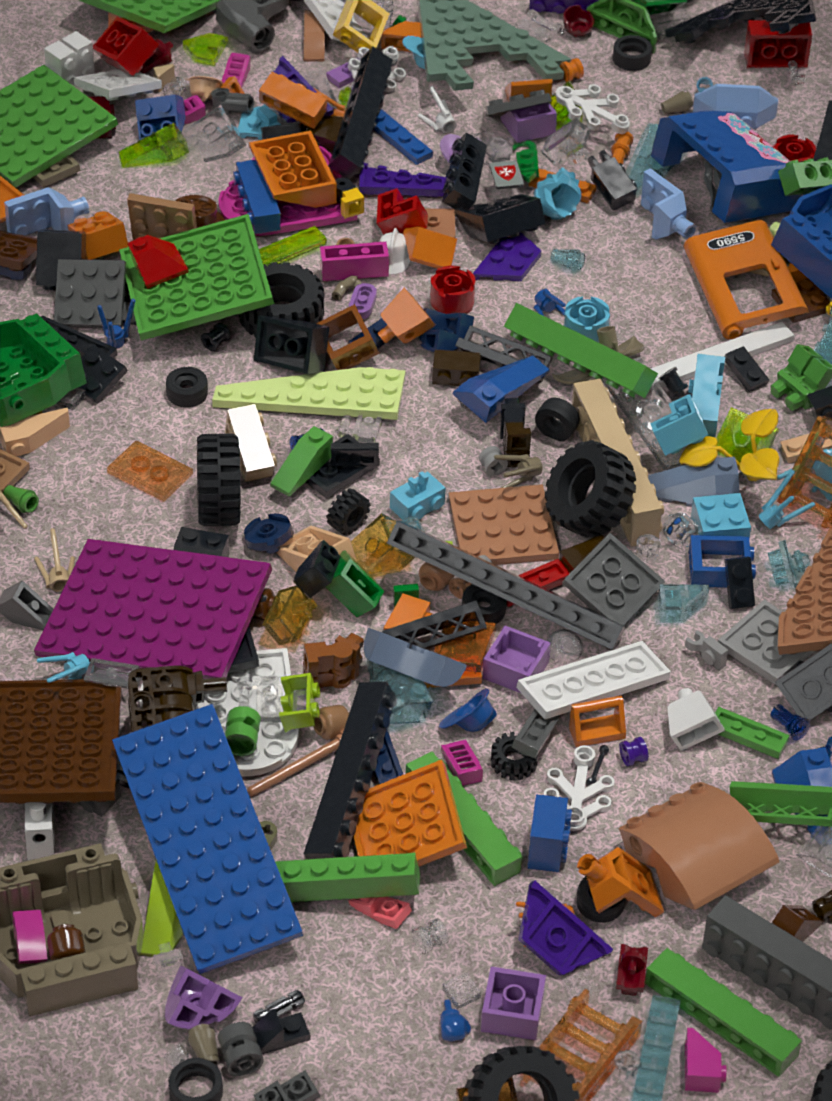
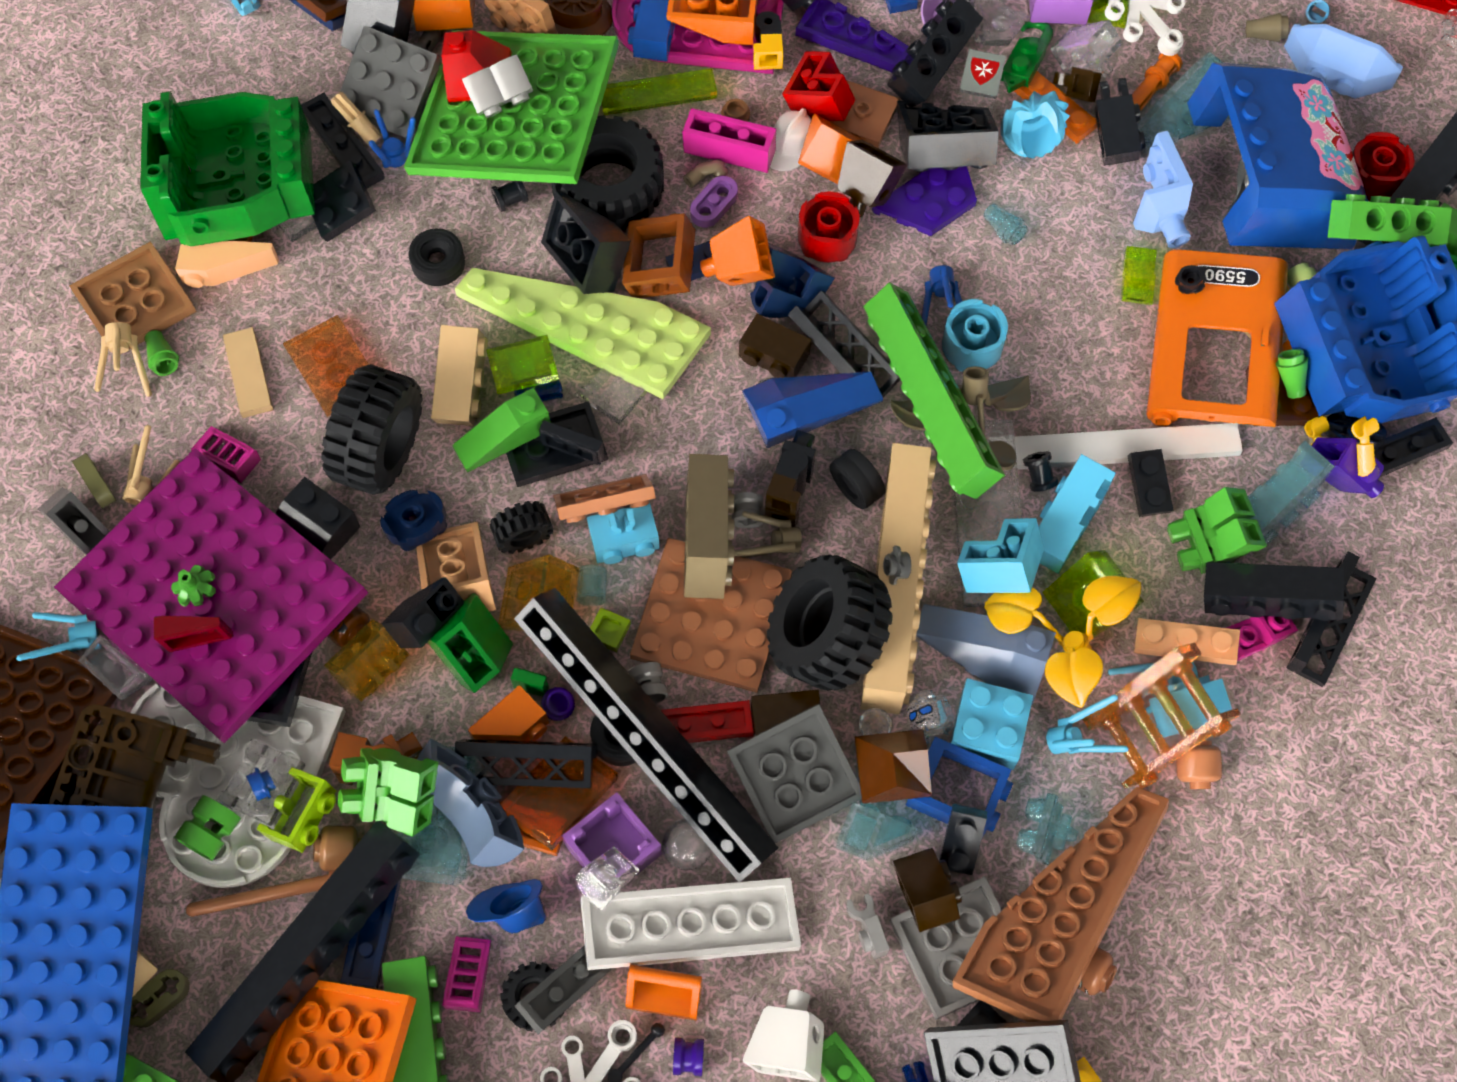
camera: 25 degrees right, 20 degrees up
(13, 575) = (94, 480): none -> olive beam
(78, 321) = (356, 118): none -> tan axle
(91, 492) = (247, 372): none -> tan tile
(115, 534) = (244, 464): none -> dark pink slope
(146, 603) = (193, 585): none -> bright green plant
(158, 626) = (189, 631): none -> dark red slope
(185, 262) = (497, 86): none -> brick
(265, 692) = (261, 784): none -> blue plate
(292, 421) = (522, 364): none -> clear neon green slope
(349, 658) = (389, 789): none -> bright green hips
(397, 479) = (604, 498): none -> nougat plate
(435, 600) = (558, 703): none -> dark purple plate
(465, 250) = (868, 175): none -> torso
(477, 467) = (708, 526): none -> dark tan brick
(528, 664) = (605, 877): none -> clear slope
(574, 163) = (1081, 83): none -> dark brown plate
(618, 439) = (897, 565): none -> dark grey plate
(672, 262) = (1138, 275): none -> clear neon green slope
(675, 556) = (893, 766): none -> reddish brown slope
(710, 247) = (1190, 273): none -> black plate
(733, 612) = (927, 889): none -> dark brown brick
(803, 276) = (1293, 371): none -> bright green cone

